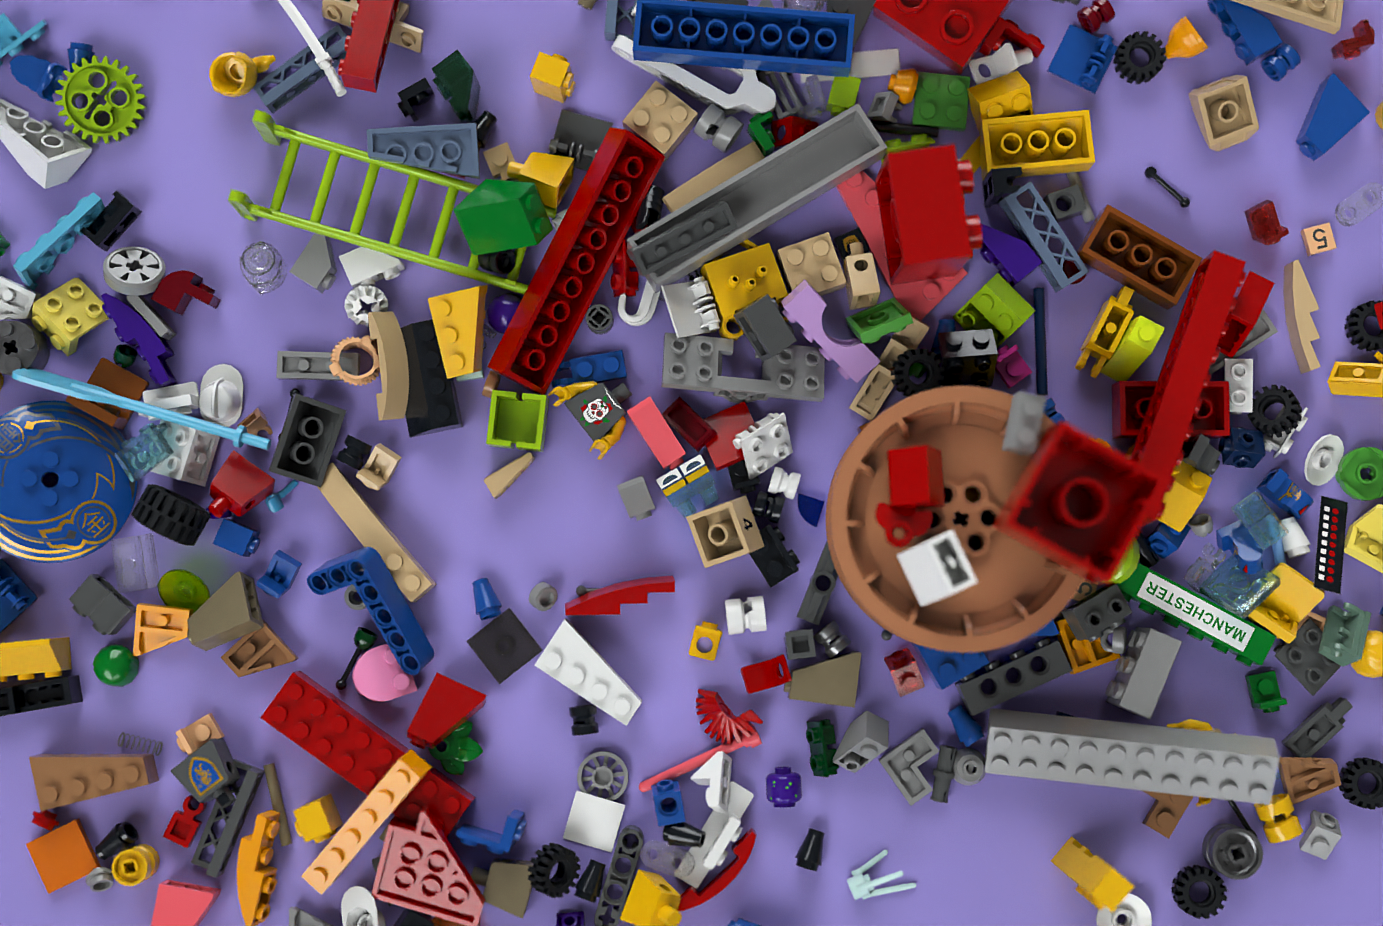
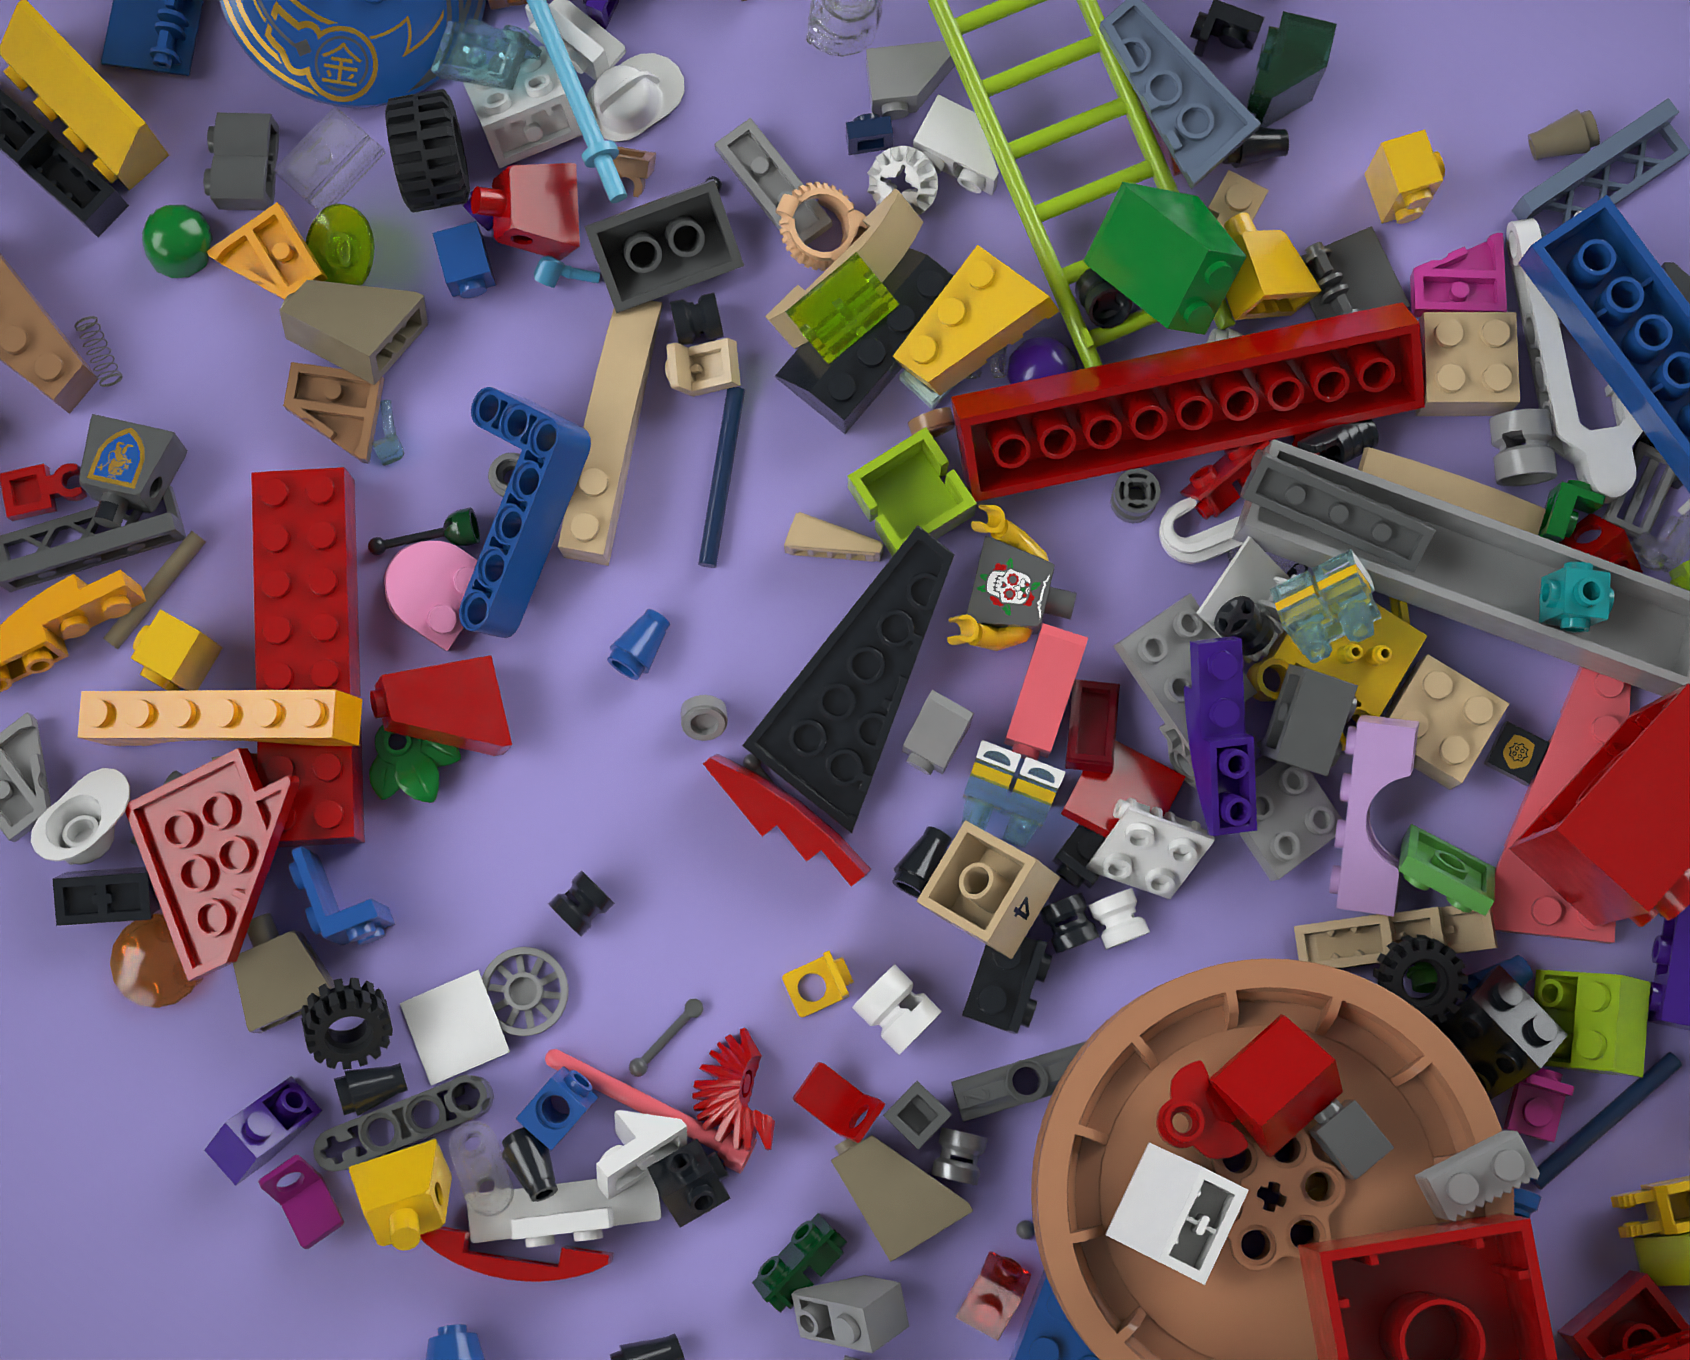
camera: 55 degrees right, 5 degrees down
(198, 734) = (169, 412): light nougat bracket -> none
(279, 574) = (459, 351): blue bracket -> none
(299, 643) = (389, 447): none -> clear light blue hand
(330, 302) = (869, 134): none -> dark blue plate
(405, 382) = (842, 308): none -> clear neon green hinge
(437, 499) = (721, 477): none -> dark blue bar
(504, 645) = (597, 719): clear smoke plate -> none
(583, 670) = (648, 845): white wedge -> none
(588, 529) = (842, 704): none -> black wing
(593, 368) = (1067, 544): blue hinge -> none
(621, 90) = (1462, 281): none -> dark pink wing
(671, 706) = (693, 1009): none -> dark grey hinge
(688, 550) = (921, 861): none -> black cone
(700, 321) = (1243, 620): none -> black wheel
(722, 278) = (1327, 607): none -> clear light blue hips
(741, 375) = (1217, 737): none -> dark purple slope
(748, 769) = (690, 1182): none -> black brick
(783, 787) = (703, 1252): dark purple head -> none
(806, 164) = (1575, 597): none -> teal brick
(809, 509) = (1112, 983): clear blue tile -> none
(861, 278) = (1483, 798): tan torso -> none
(963, 464) = (1349, 1137): none -> dark grey brick

